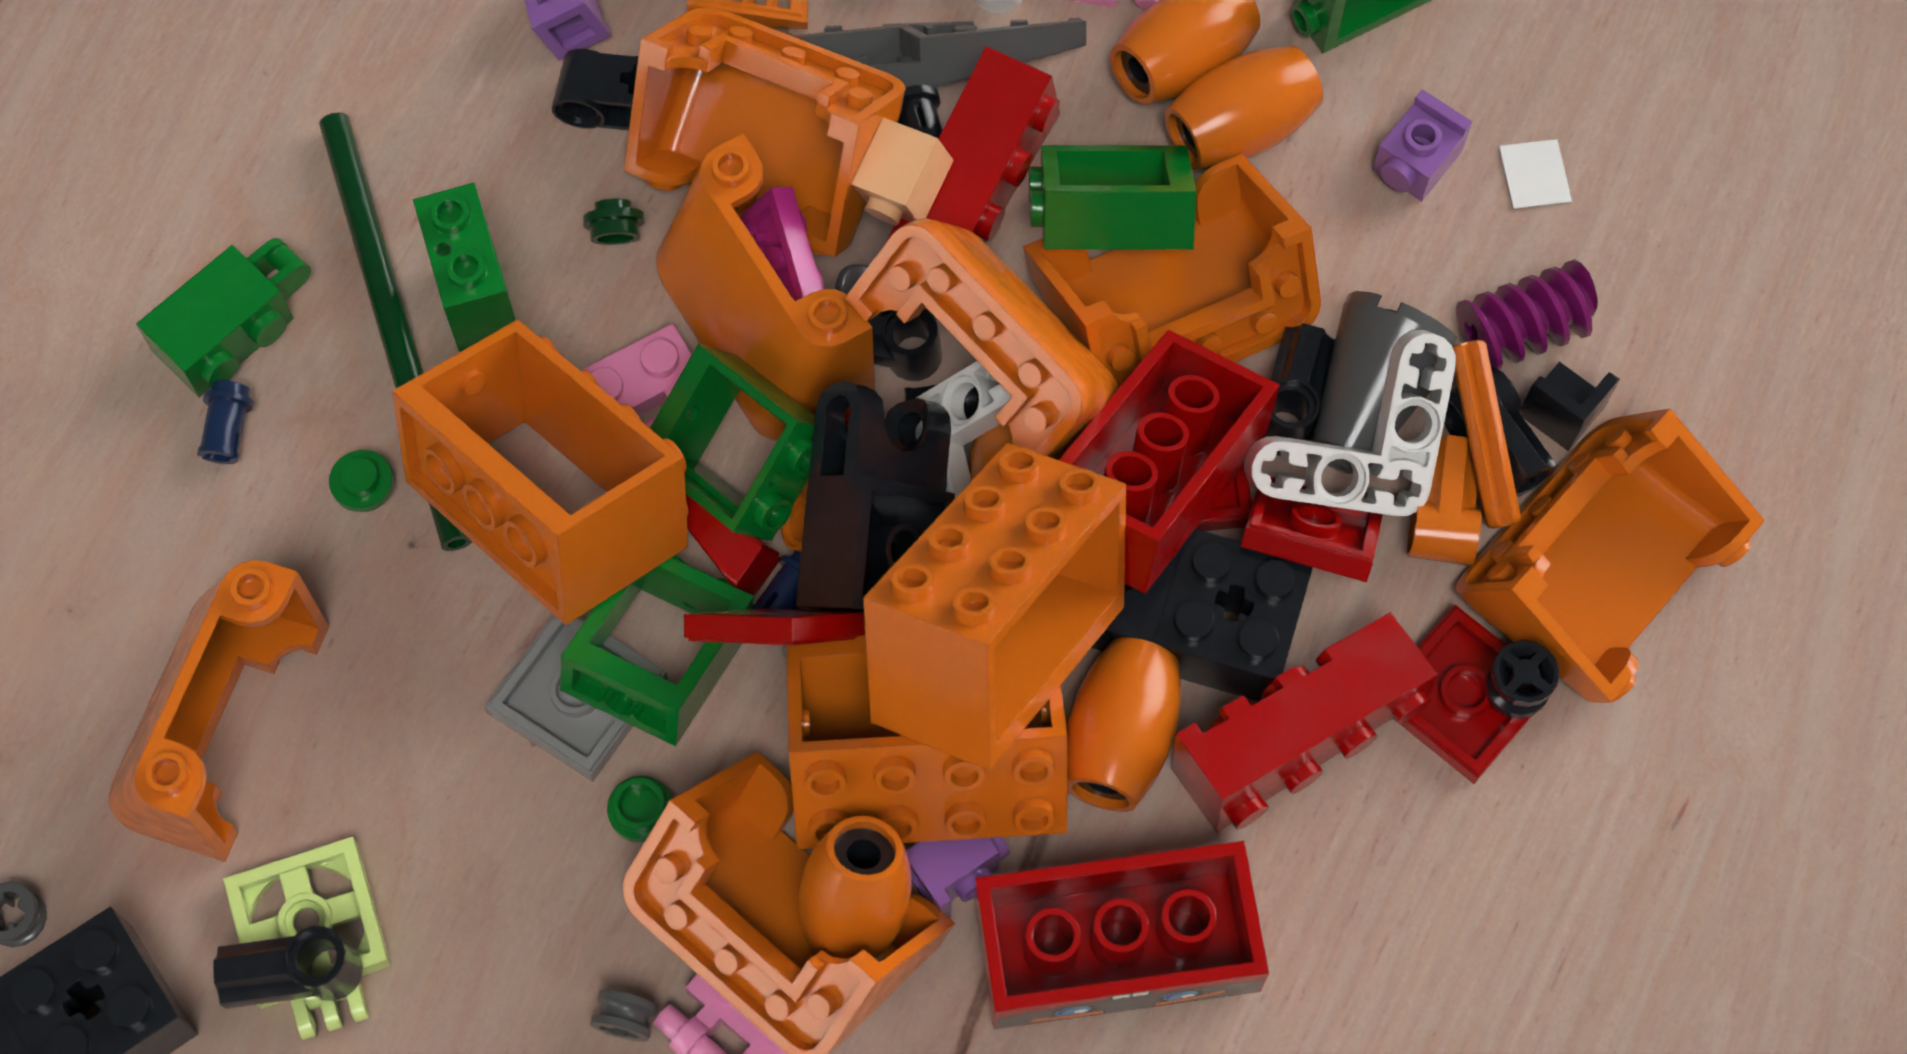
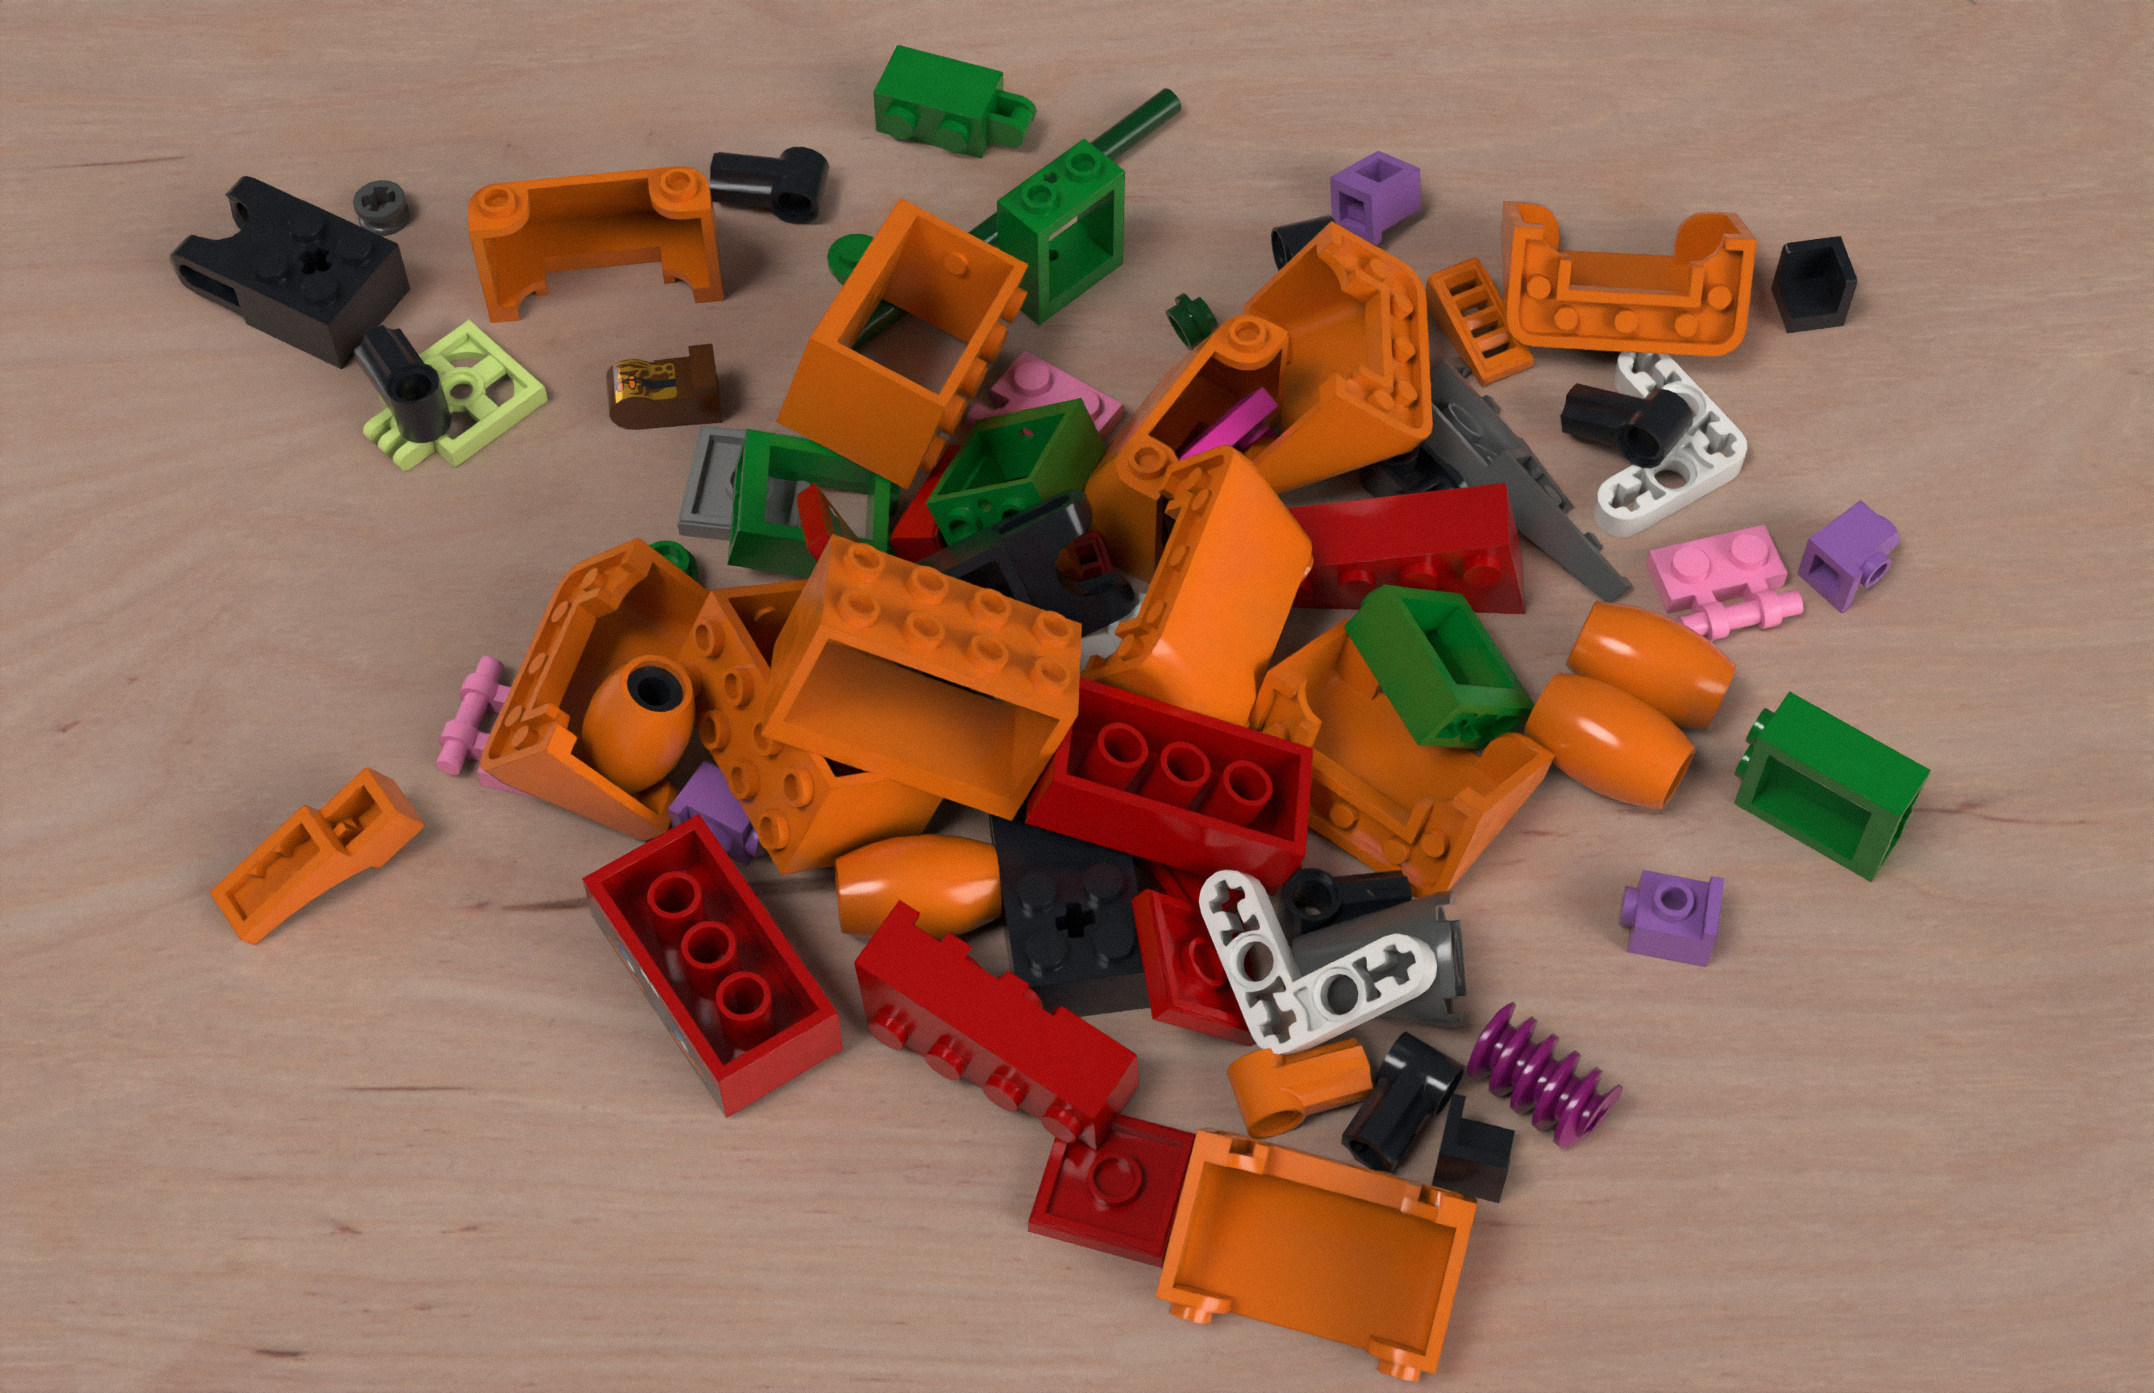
camera: 65 degrees right, 10 degrees down
(224, 421) = (858, 148): dark blue pin -> none
(229, 506) = (786, 184): none -> black piece
(427, 720) = (665, 391): none -> reddish brown leg
(623, 1015) = (475, 632): dark grey bush -> none
(901, 173) = (1337, 476): light nougat brick -> none
(1486, 435) = (1376, 1073): orange axle -> none
(1528, 666) = (1139, 1192): black wheel -> none
(1535, 174) = (1723, 1041): white sticker -> none

